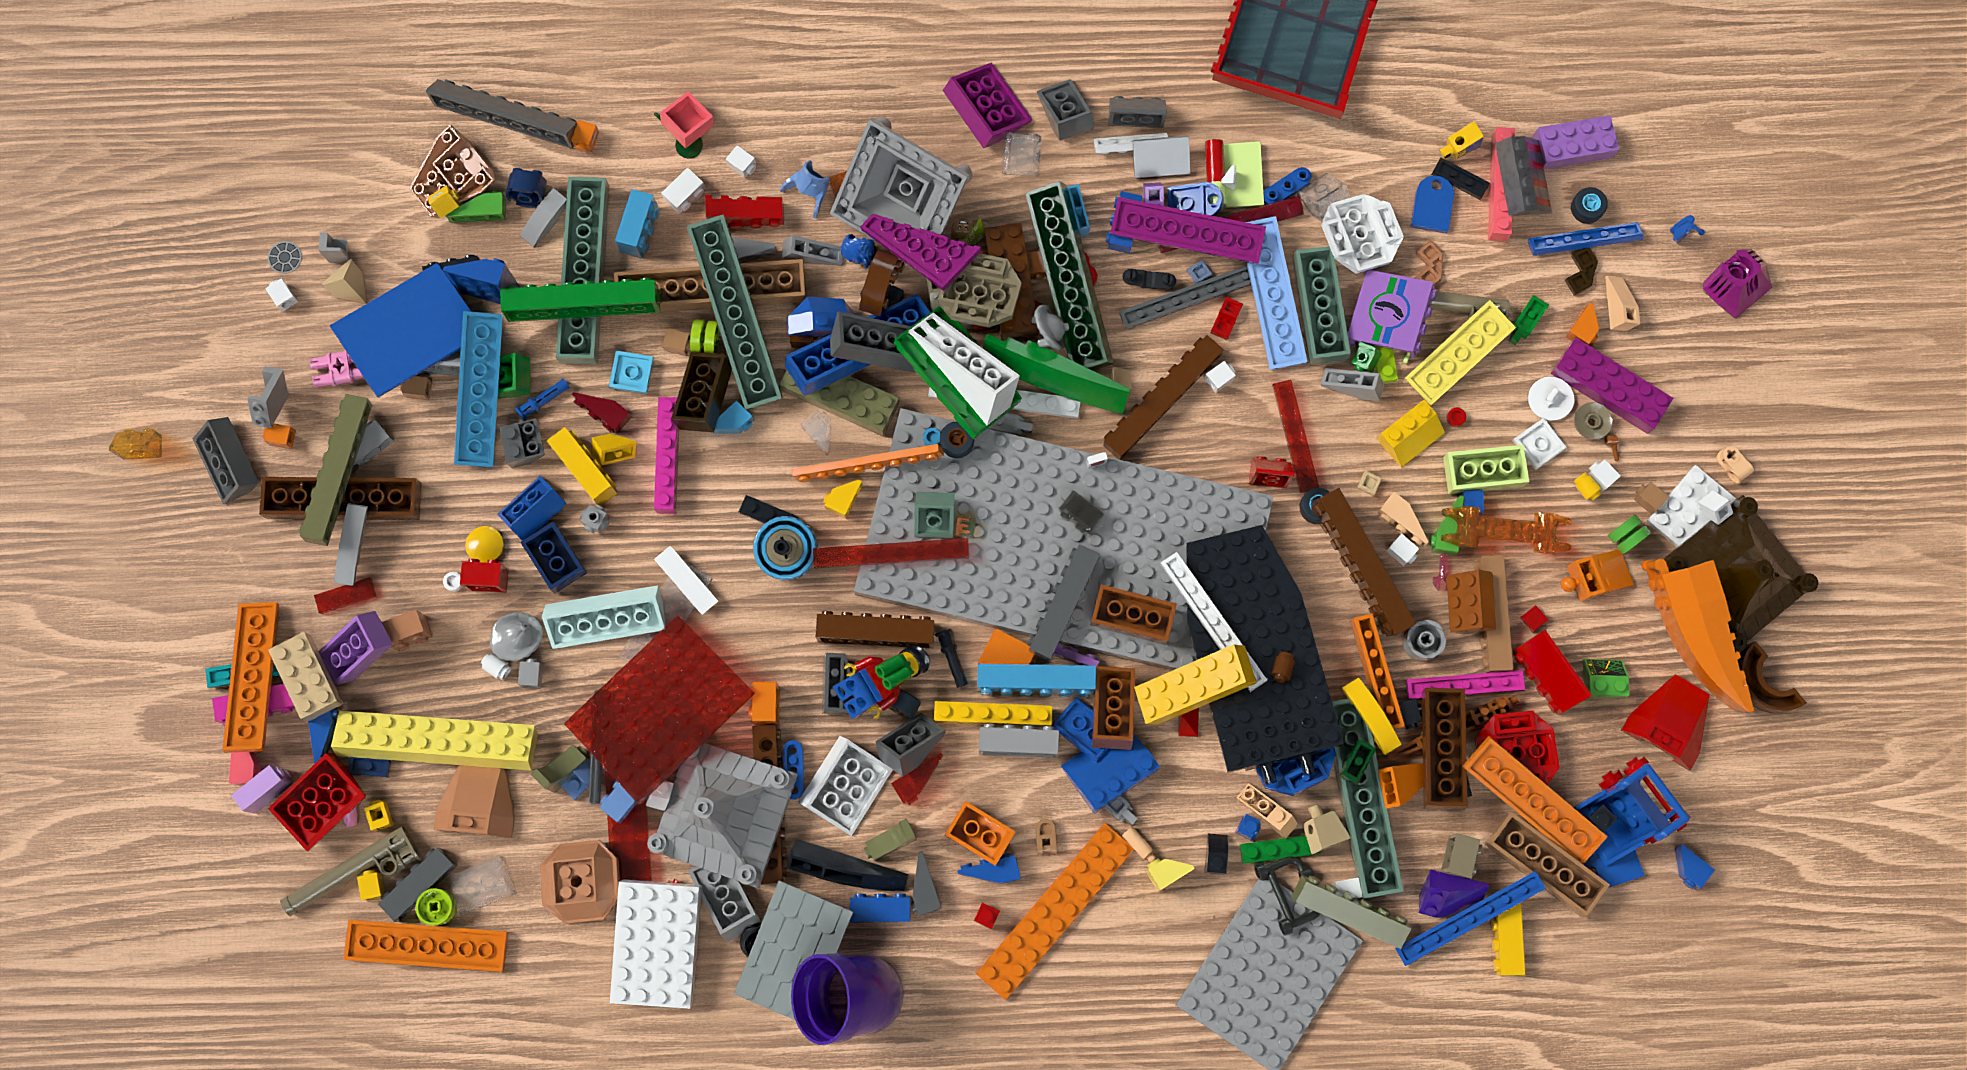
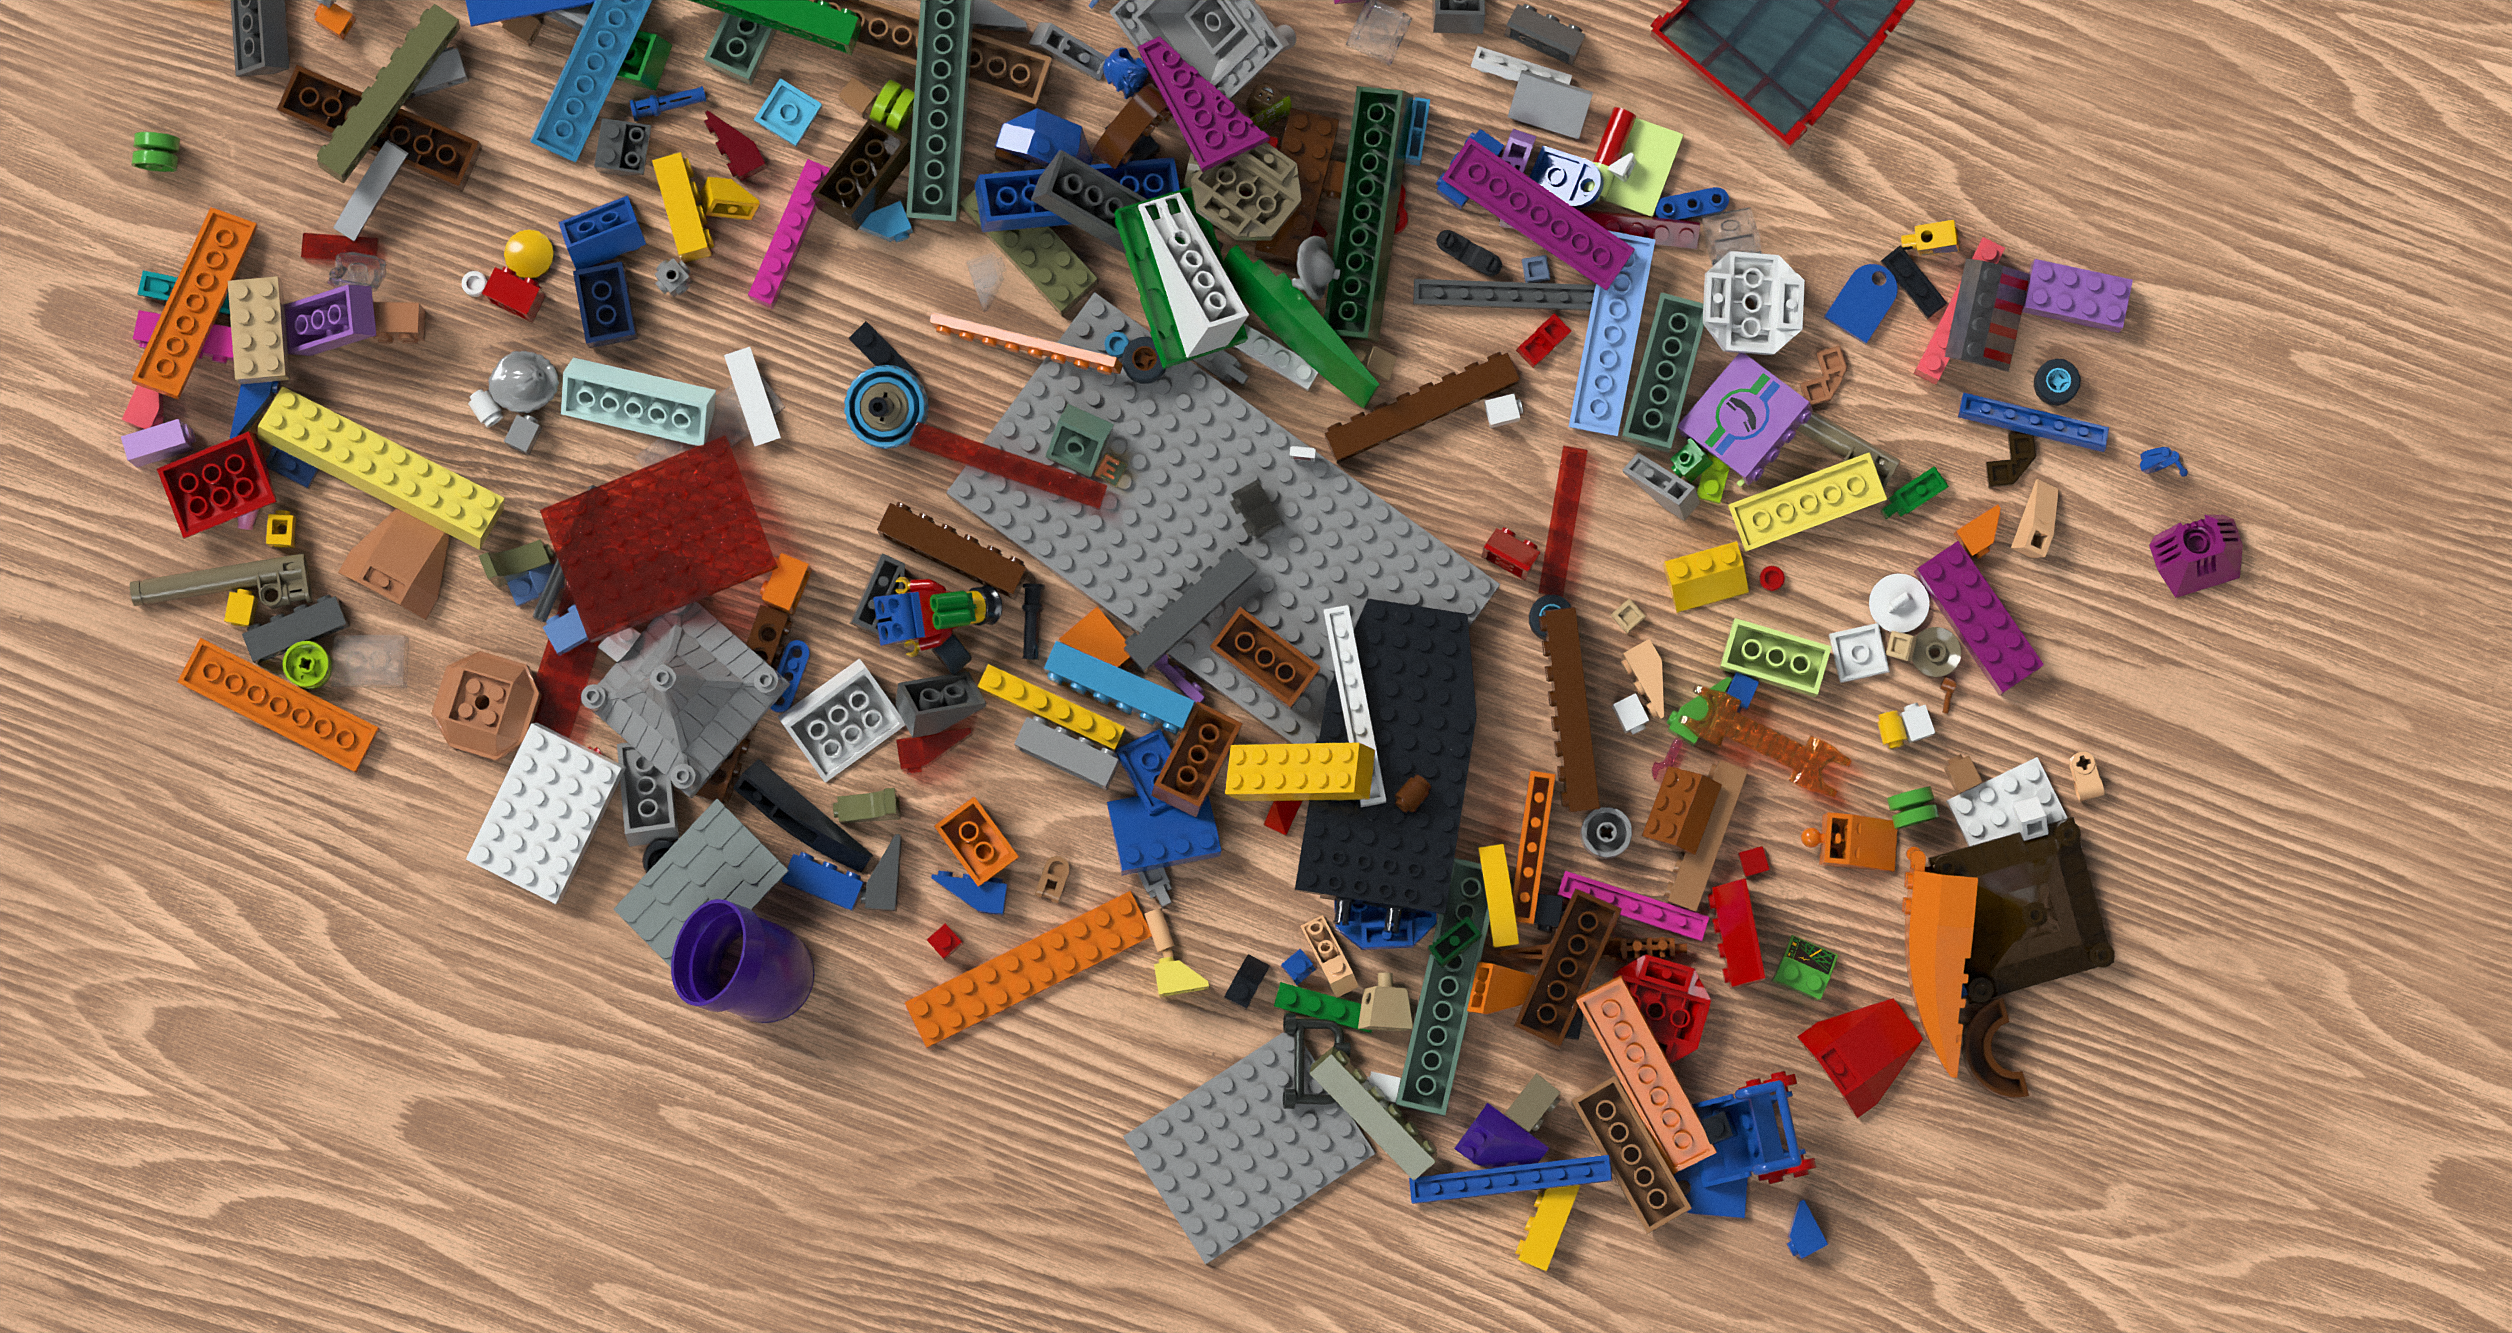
camera: 25 degrees right, 5 degrees up
(182, 579) = (155, 151): none -> bright green wheel
(363, 603) = (357, 270): none -> clear slope
(842, 498) = (980, 373): yellow slope -> none
(1567, 426) = (1901, 645): none -> tan tile

